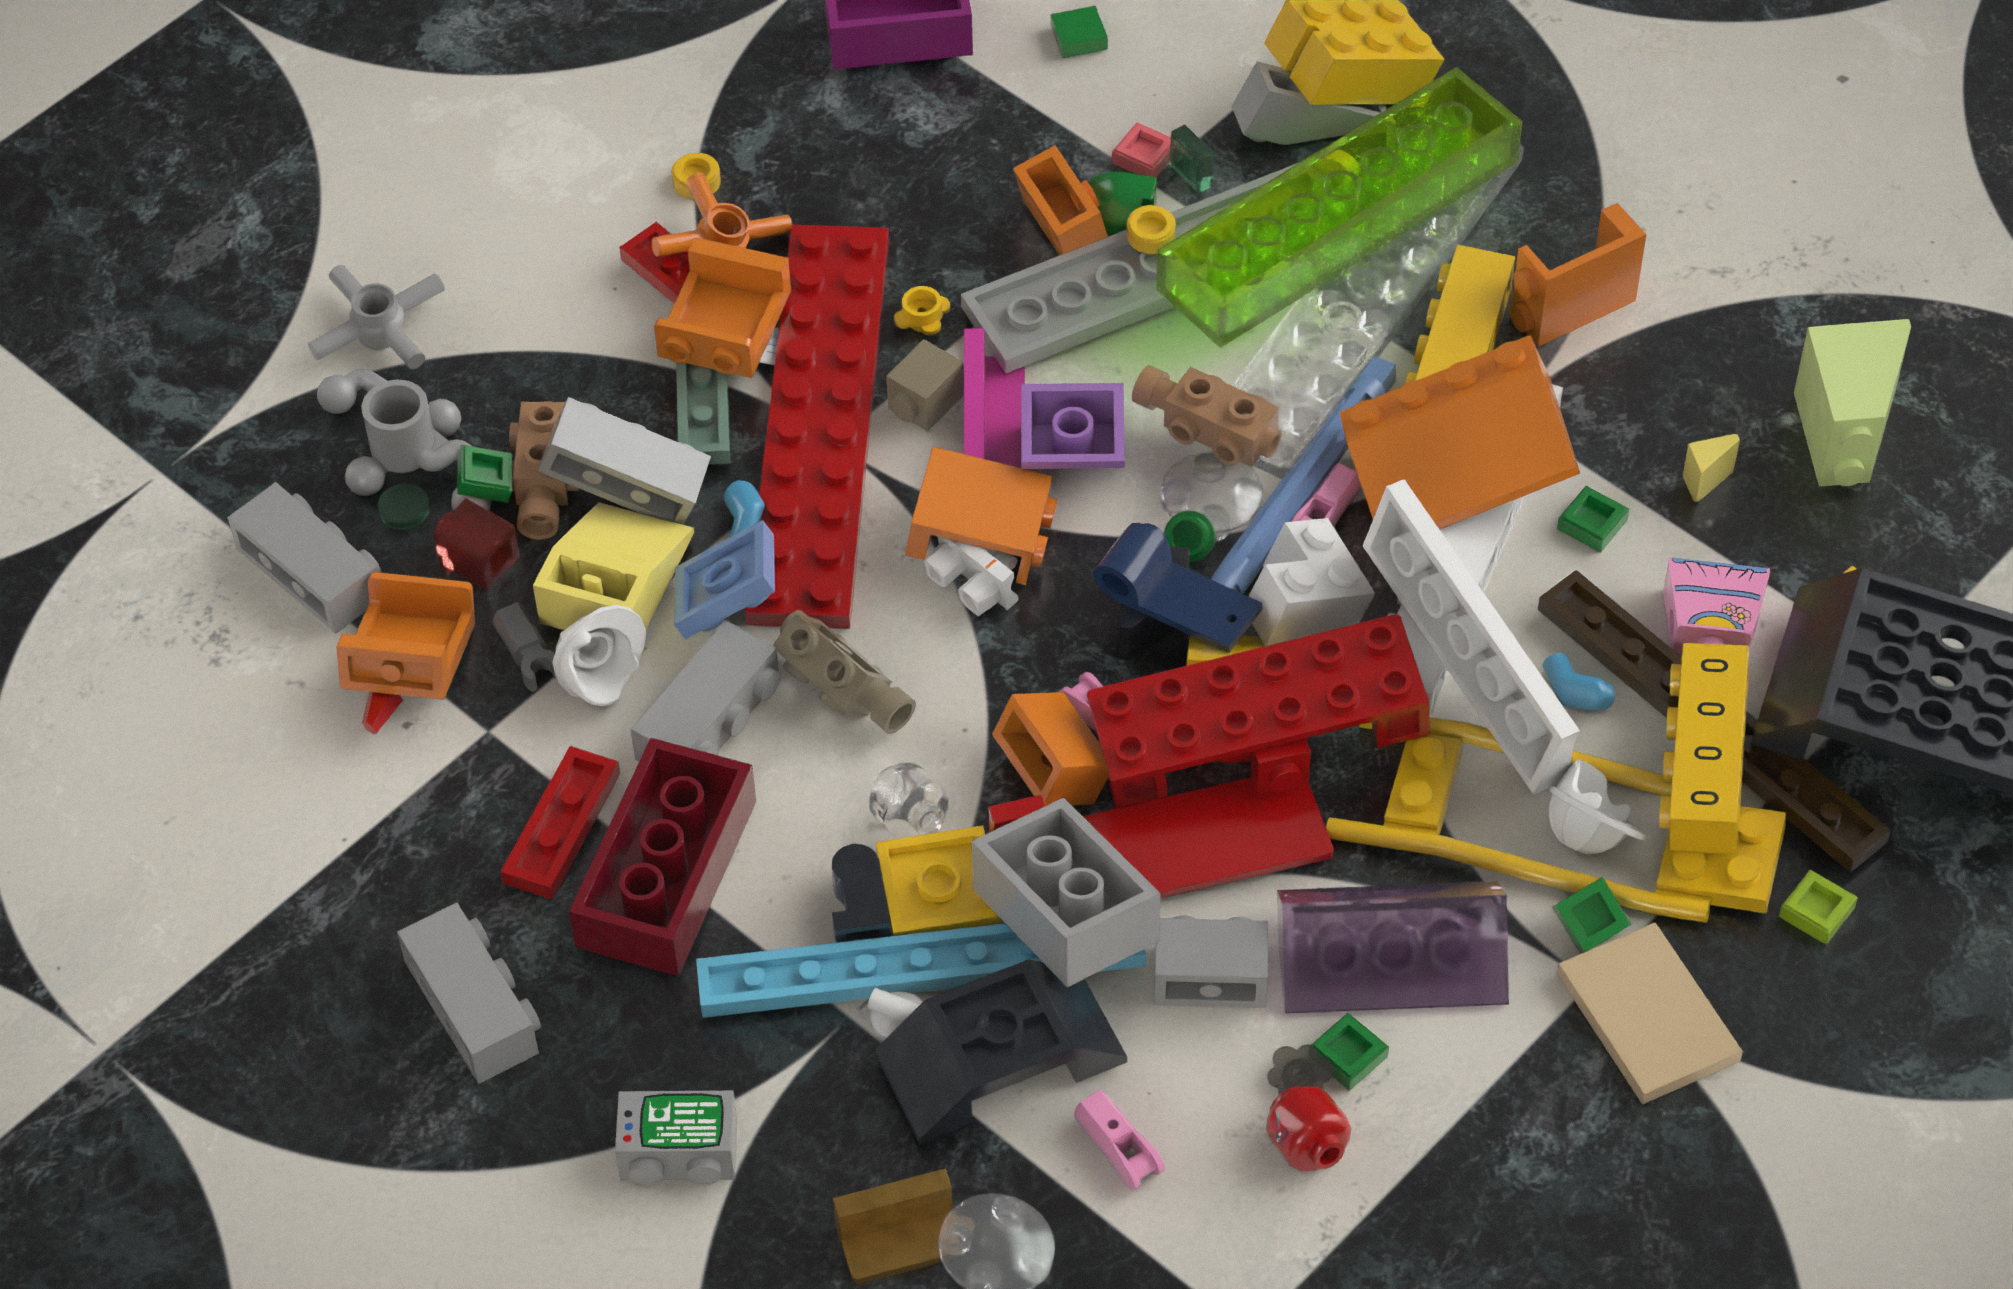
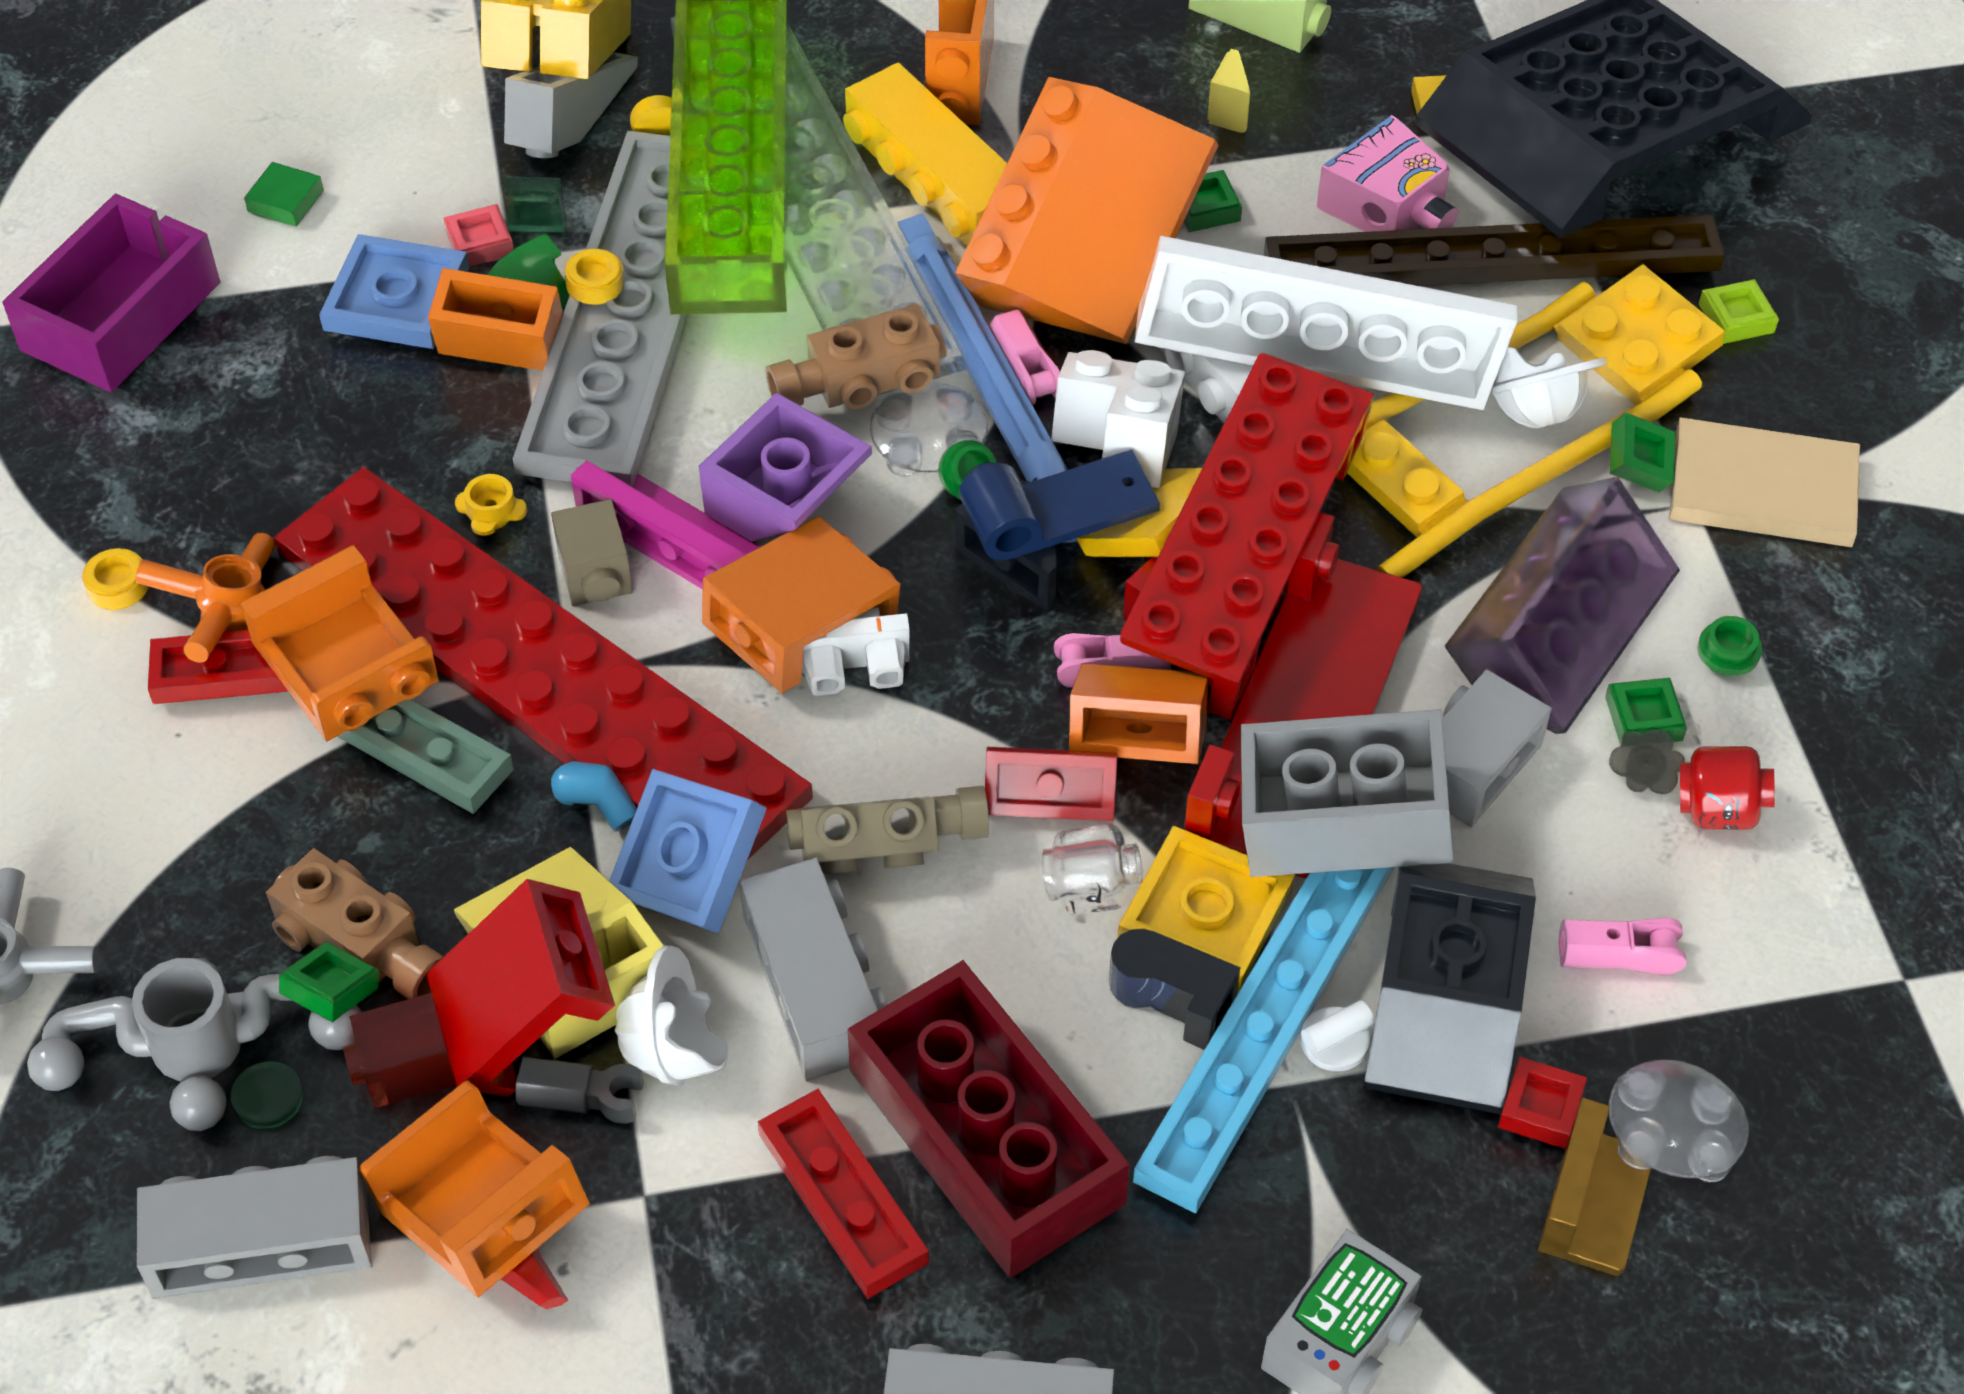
camera: 55 degrees left, 0 degrees up
(550, 557) = (516, 981): none -> red panel
(624, 462) = (448, 846): brick -> none
(942, 1150) = (1542, 1102): none -> red plate
(960, 740) = (1050, 783): none -> plate
(1047, 123) = (388, 290): none -> medium blue plate
(1455, 1070) = (1730, 646): none -> green plate
(1708, 748) = (1555, 260): yellow brick -> none

